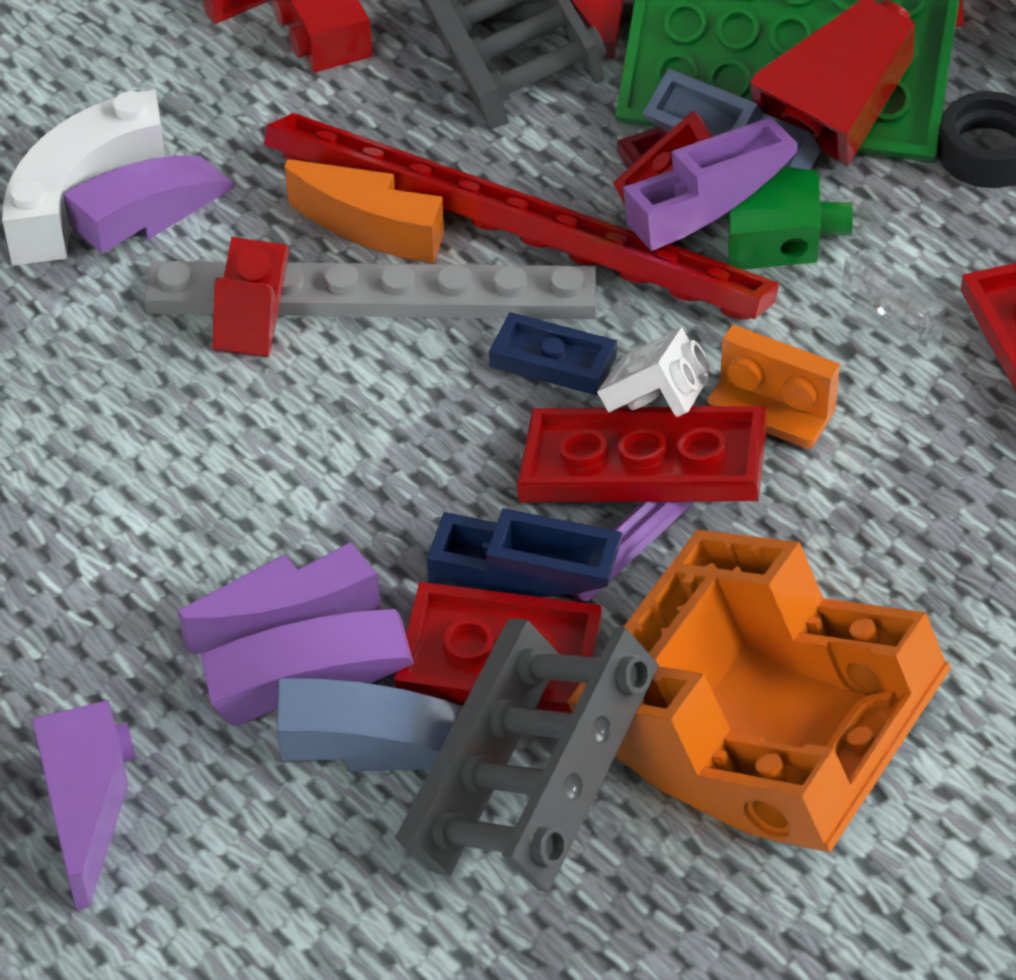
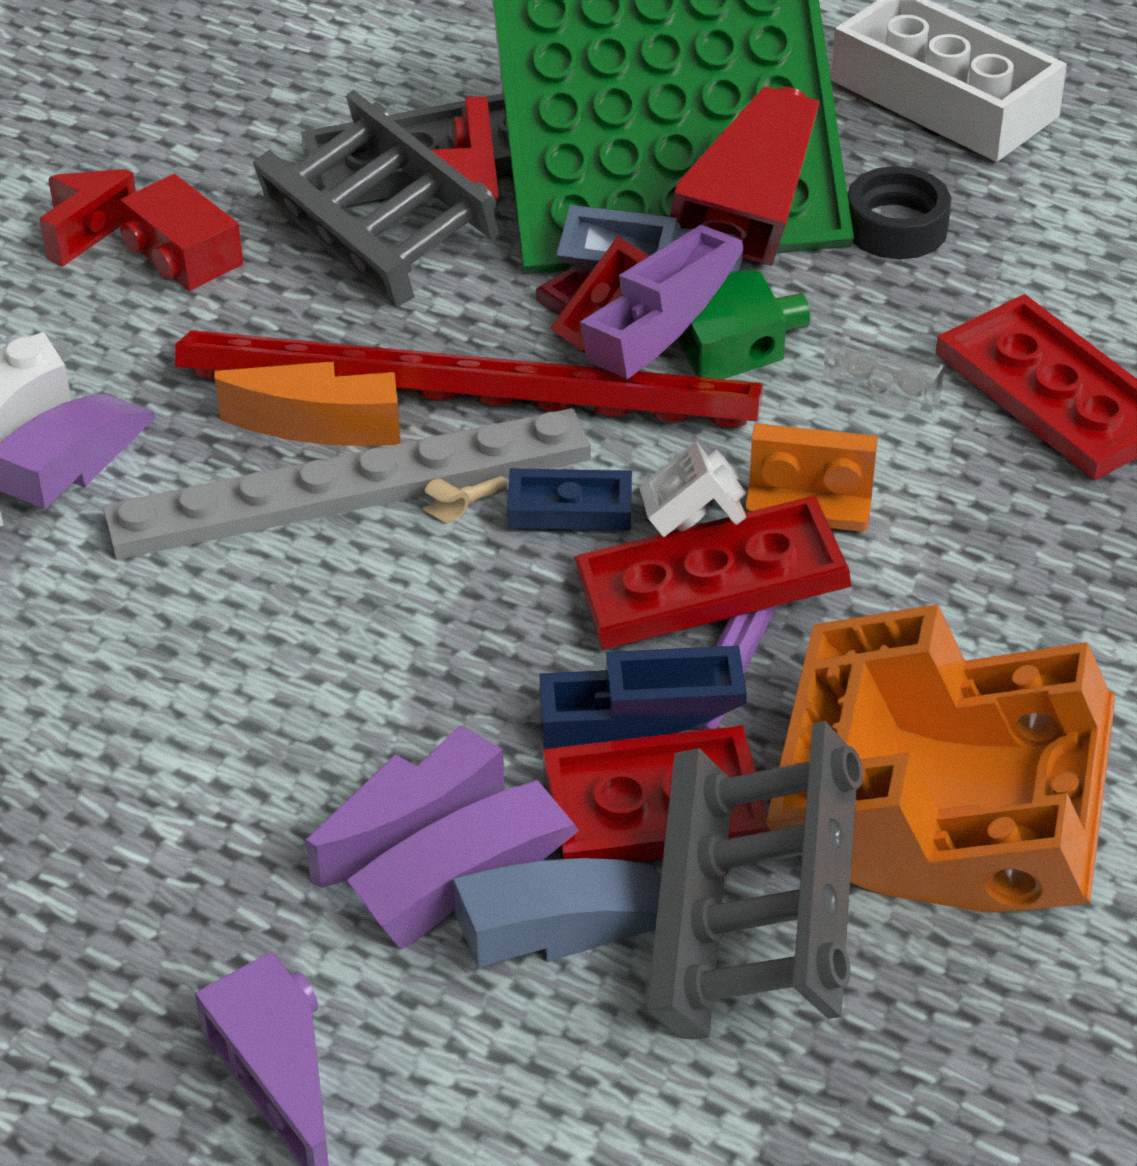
camera: 20 degrees left, 5 degrees down
(249, 297) = (232, 514): red slope -> none
(451, 331) = (453, 502): none -> tan hand

